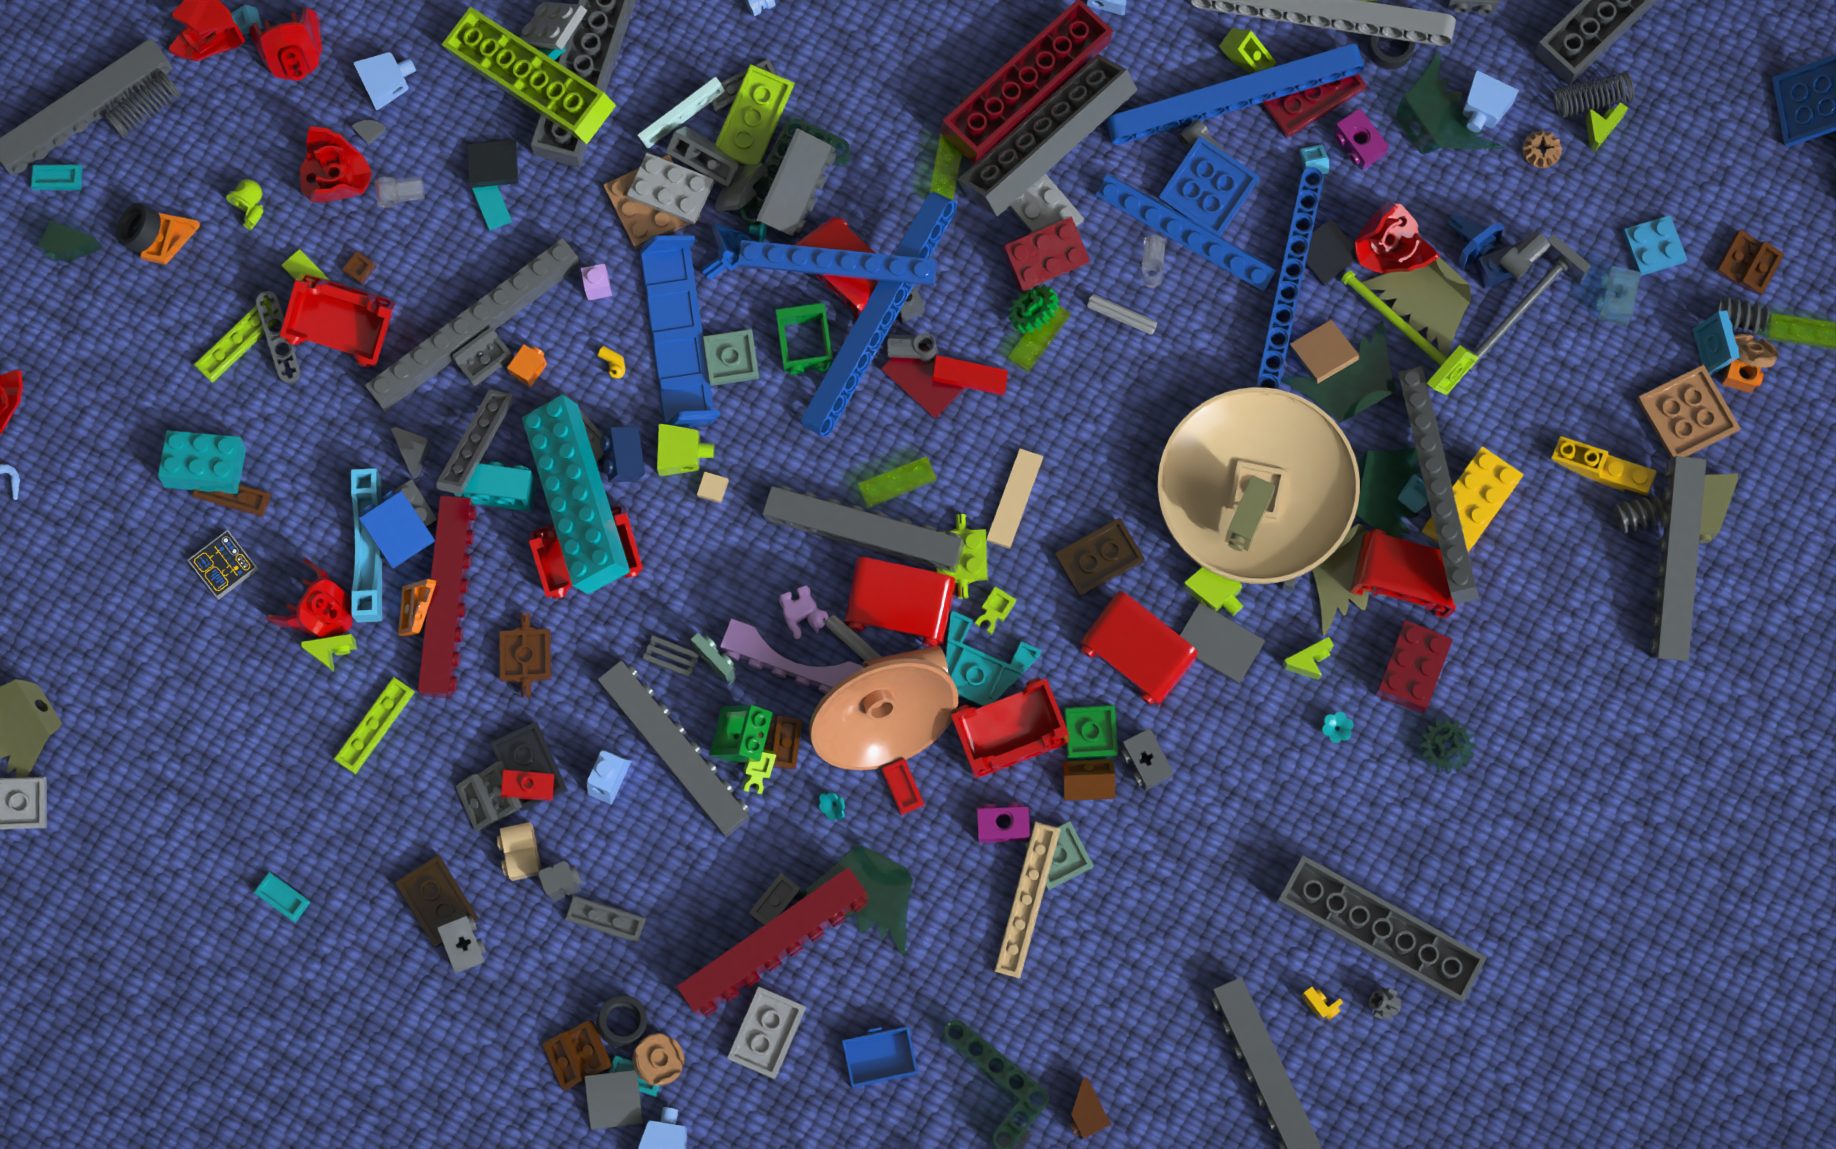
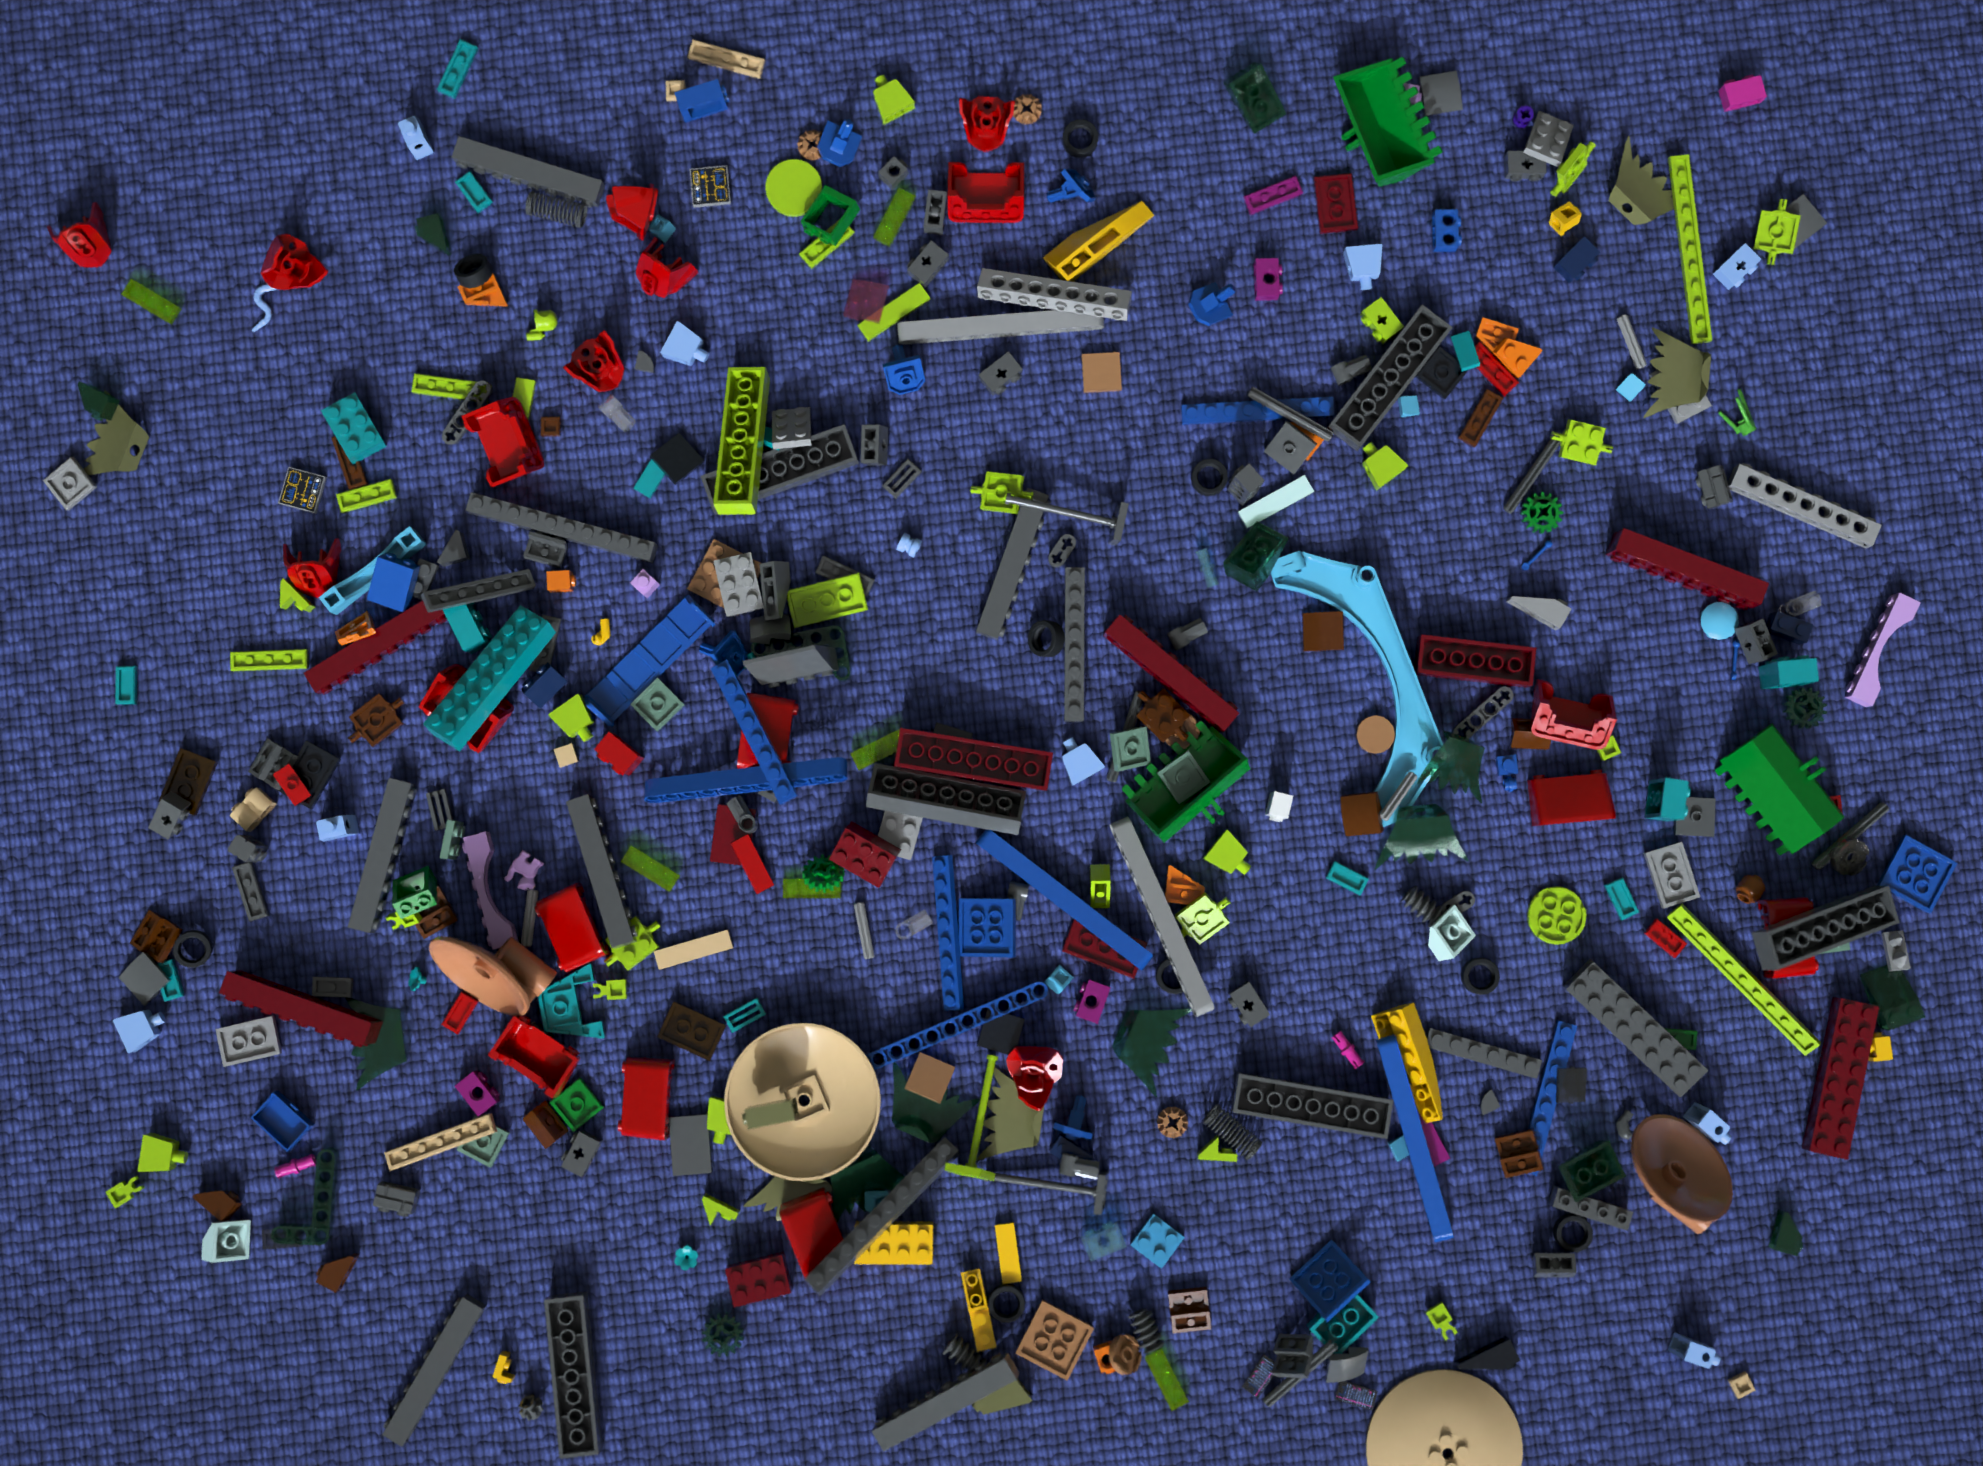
camera: 55 degrees right, 10 degrees up
(281, 503) = (366, 495): none -> lime tile
(658, 1059) = (185, 988): medium nougat tile -> none
(681, 113) = (795, 553): light aqua tile -> none
(754, 426) = (618, 753): none -> red brick
(800, 315) = (680, 751): green window -> none
(939, 1077) = (295, 1166): none -> dark pink pin
(1054, 990) = (396, 1198): none -> dark grey brick
(1120, 514) = (759, 1007): none -> teal tile
(1487, 101) = (1176, 1065): light blue torso -> none
(1564, 400) = (1008, 1253): none -> yellow tile
(1623, 418) = (1004, 1317): none -> black tyre
(1716, 342) = (1112, 1328): dark azure plate -> none

